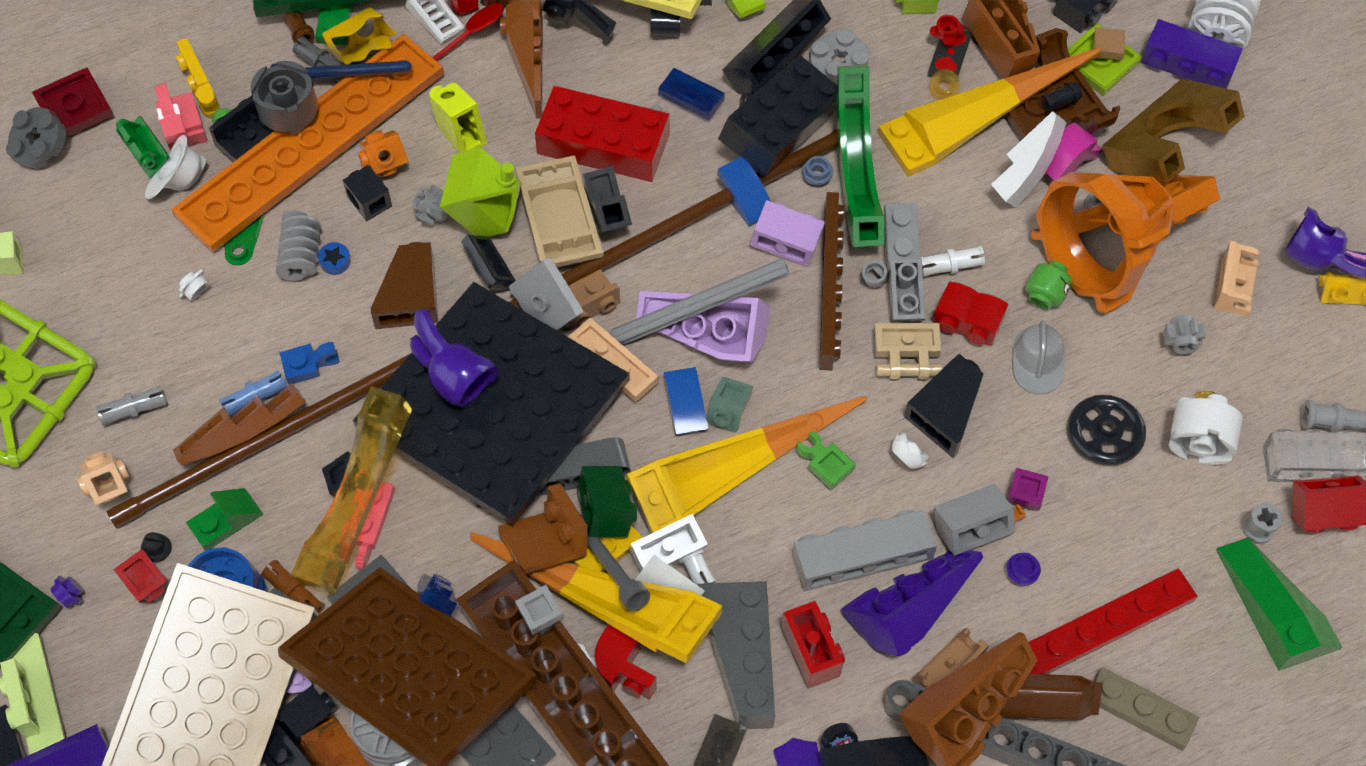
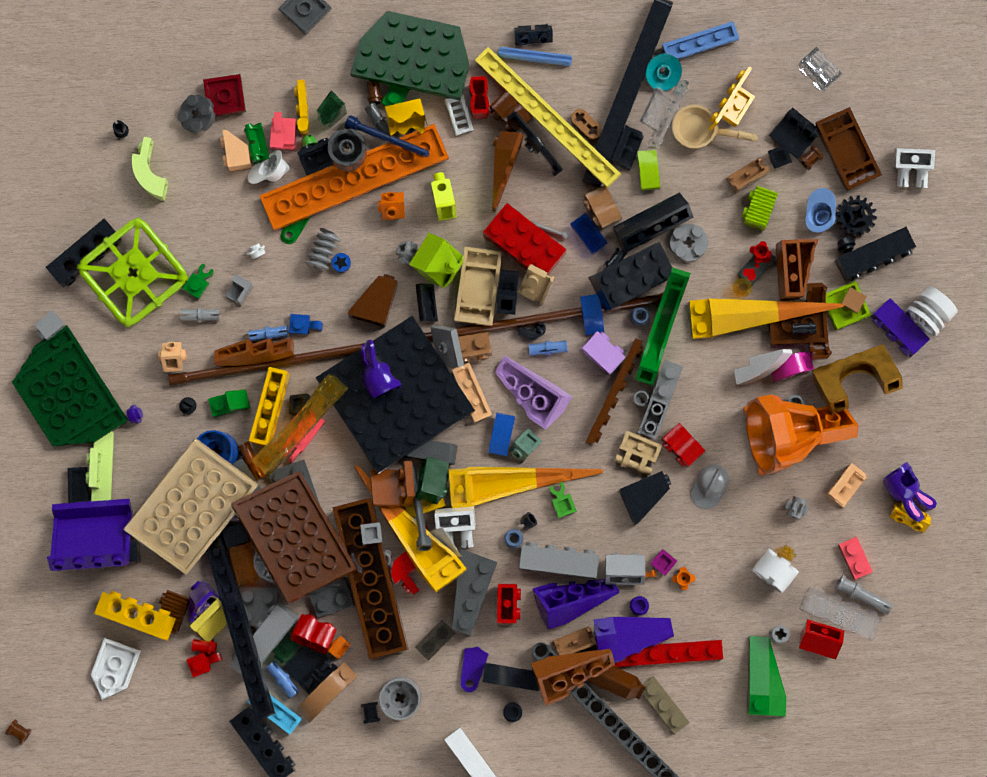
camera: 20 degrees right, 20 degrees up
(114, 366) = (196, 284): none -> green plate
(116, 166) = (237, 152): none -> light nougat slope
(141, 577) = (175, 422): red bracket -> none
(186, 347) = (239, 290): none -> light grey panel
(241, 59) = (331, 110): none -> clear green slope
(292, 489) = (269, 406): none -> yellow brick
(367, 192) = (374, 227): black brick -> none
(437, 593) = (324, 498): clear blue plate -> none
(476, 23) = (483, 131): red piece -> none
(645, 175) = (536, 284): none -> tan plate
(670, 248) = (533, 333): none -> black arm
(695, 53) = (602, 207): none -> medium nougat brick
(701, 302) = (531, 383): light grey axle -> none
(719, 251) = (548, 348): none -> medium blue pin
(774, 537) = (518, 534): none -> sand blue plate
(787, 509) = (528, 520): none -> black hinge
(838, 734) = (499, 658): black tile -> none
(909, 452) = (609, 515): white plate -> none
(953, 261) = (689, 407): white pin -> none
(1035, 609) = (630, 634): none -> dark purple wedge
(1048, 285) = (736, 446): bright green head -> none
(1072, 493) = (683, 583): none -> orange plate
(1092, 449) = (711, 553): black plate -> none
(1308, 374) = (855, 558): none -> coral plate

